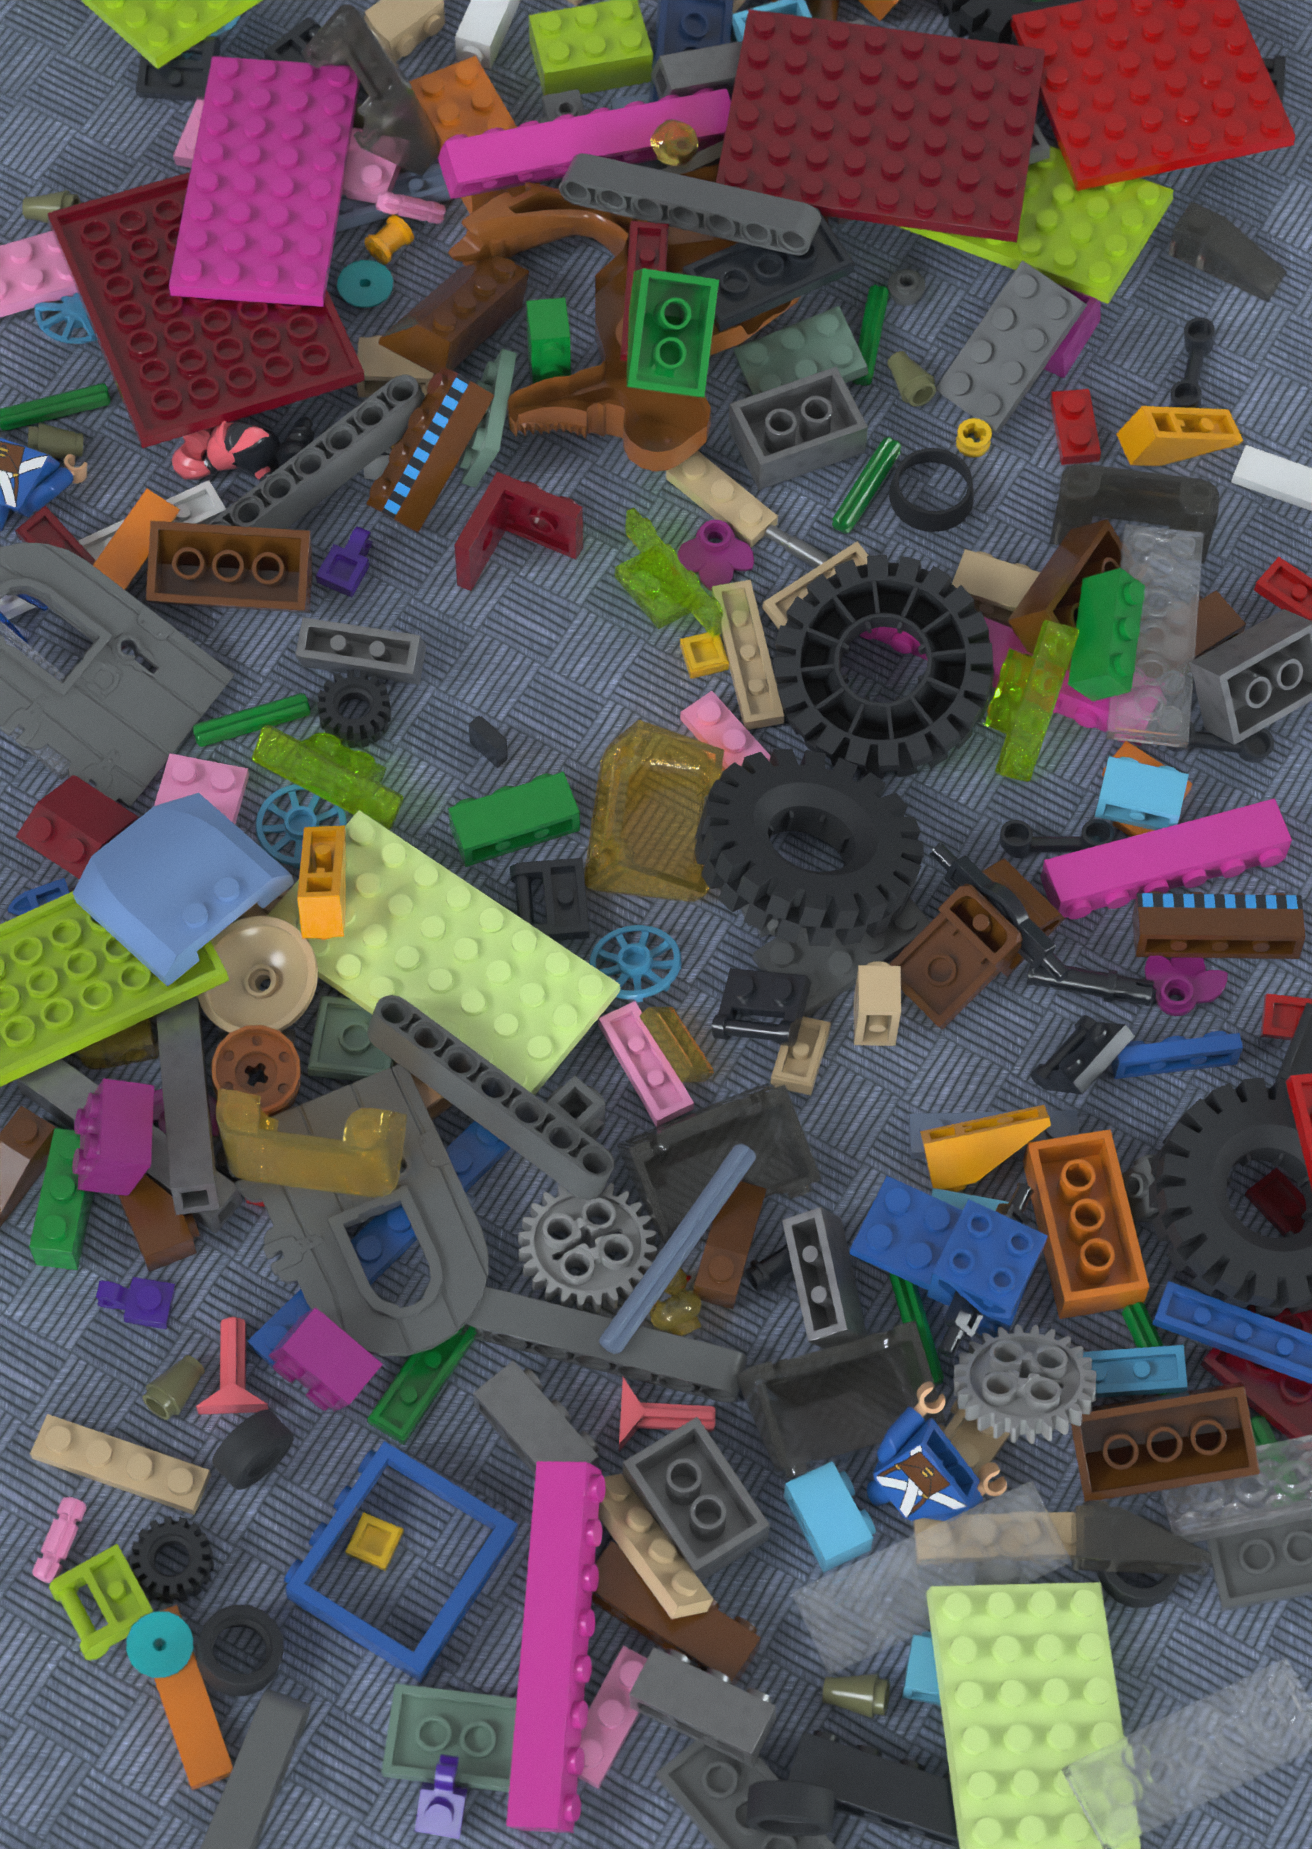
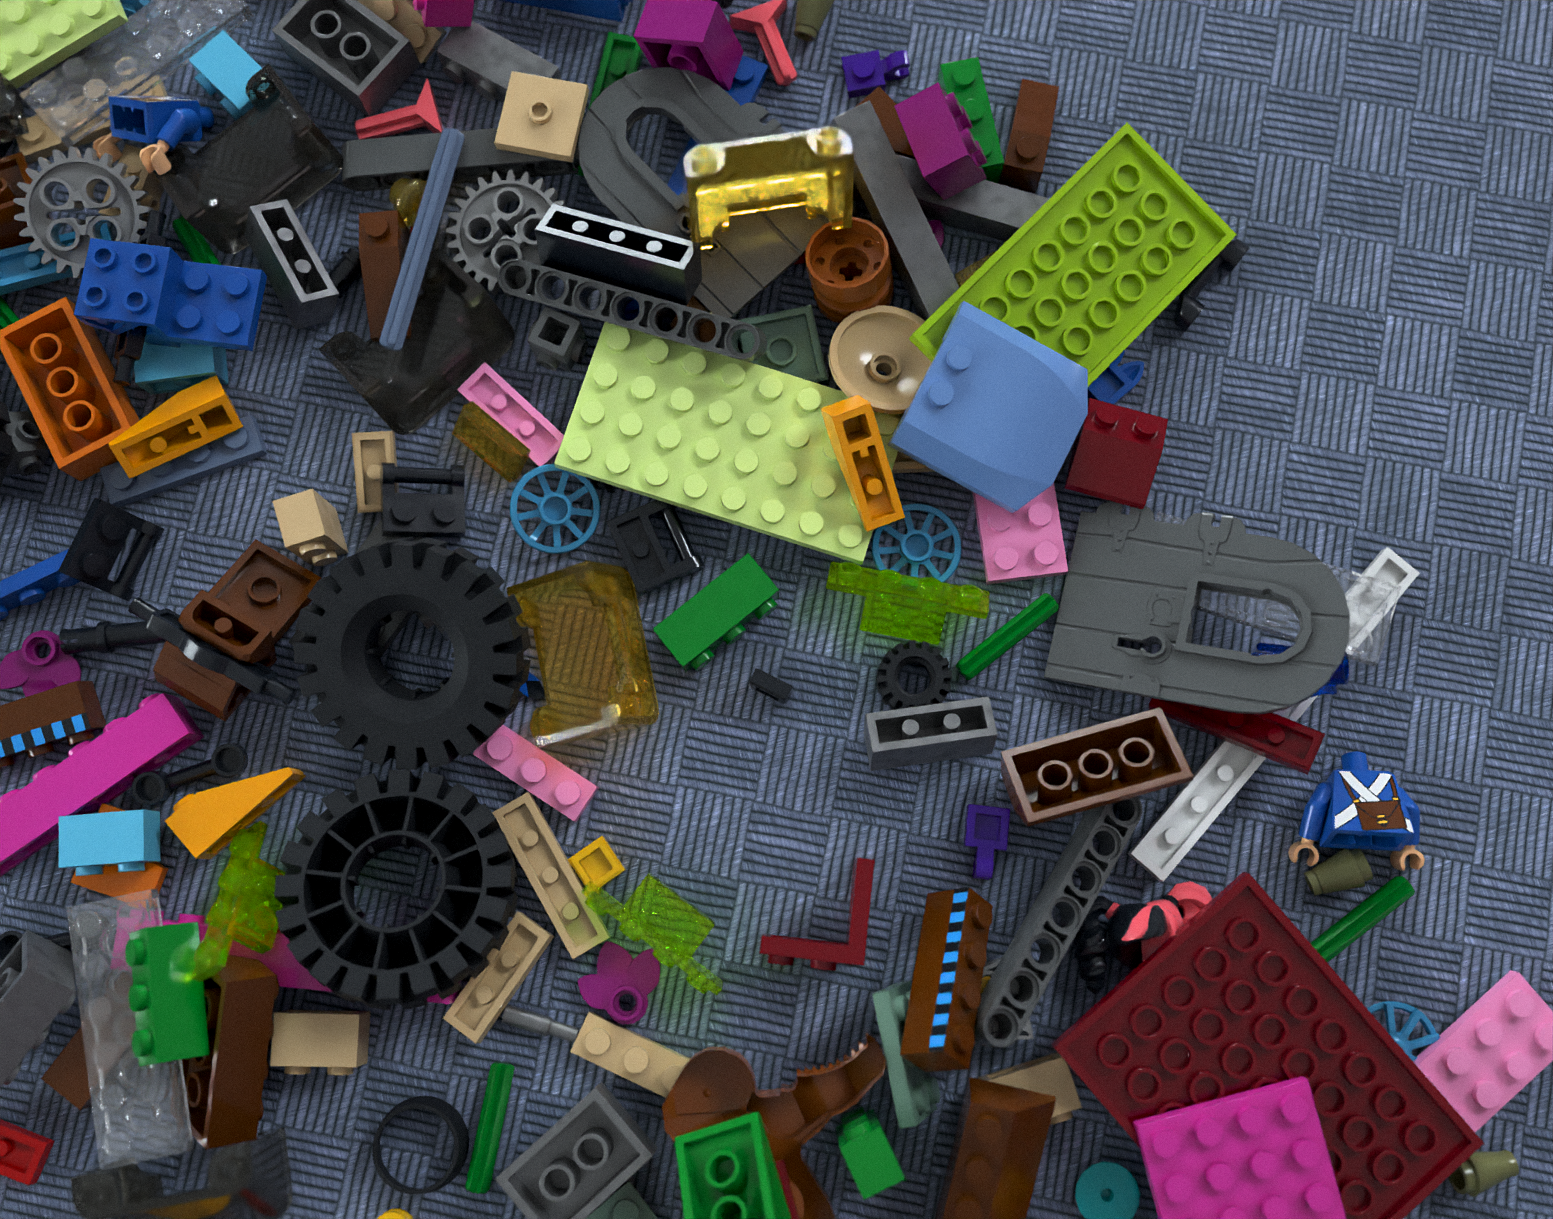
camera: 165 degrees right, 15 degrees up
(130, 544) = (1206, 754): orange tile -> none
(482, 1143) = (619, 254): none -> black brick
(509, 1334) = (541, 116): none -> tan plate
(1033, 795) = (214, 816): none -> light orange slope

